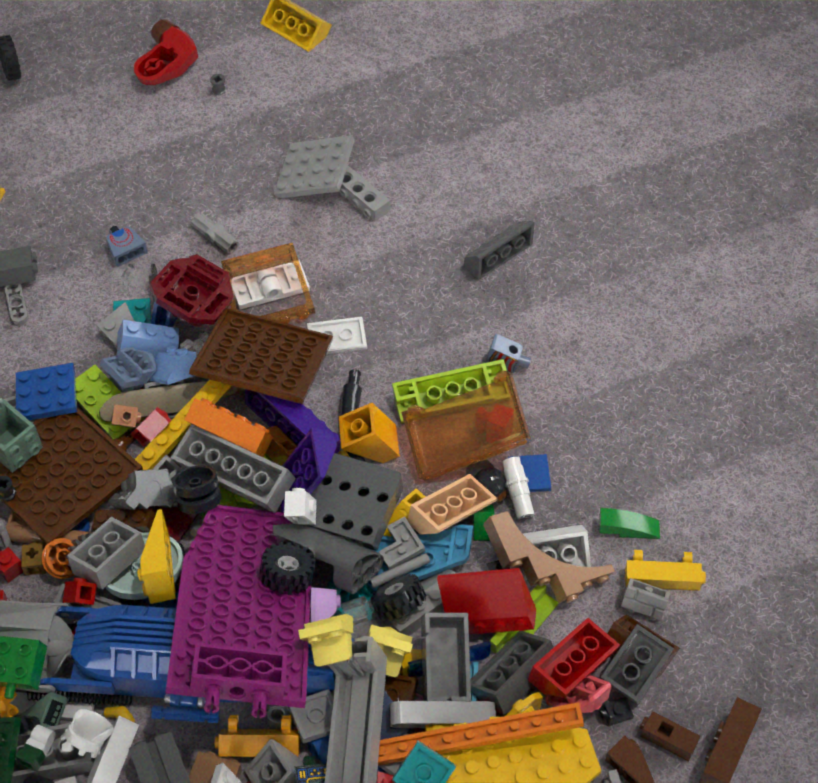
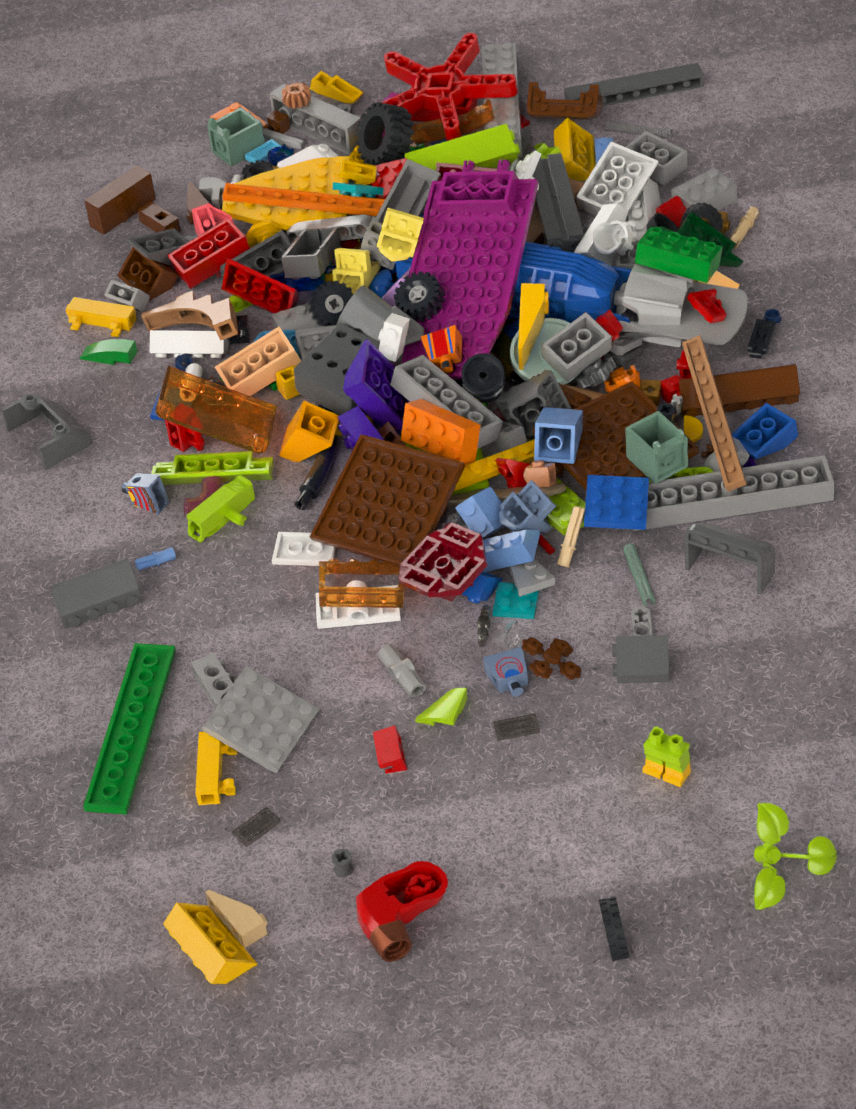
camera: 160 degrees left, 10 degrees down
(12, 337) = (639, 565): none -> sand green piece
(88, 361) = (571, 536): none -> tan axle
(89, 260) = (551, 655): none -> reddish brown plant
(109, 447) = (558, 435): none -> medium blue slope
(110, 207) = (516, 727): none -> clear smoke tile
(171, 209) = (445, 709): none -> lime slope
(206, 168) = (389, 749): none -> hinge
(248, 519) = (444, 347): none -> orange torso
(281, 39) = (238, 917): none -> tan slope
(293, 104) = (256, 827): none -> clear smoke tile
(340, 126) = (209, 770): none -> yellow brick
(421, 158) = (129, 729): none -> green plate
(427, 350) = (221, 508): none -> lime piece
(449, 358) = (209, 486): none -> clear pink cylinder
(468, 302) = (155, 559): none -> medium blue axle
(541, 523) = (183, 358): none -> dark blue plate
(633, 425) = (66, 431): none -> dark grey windscreen

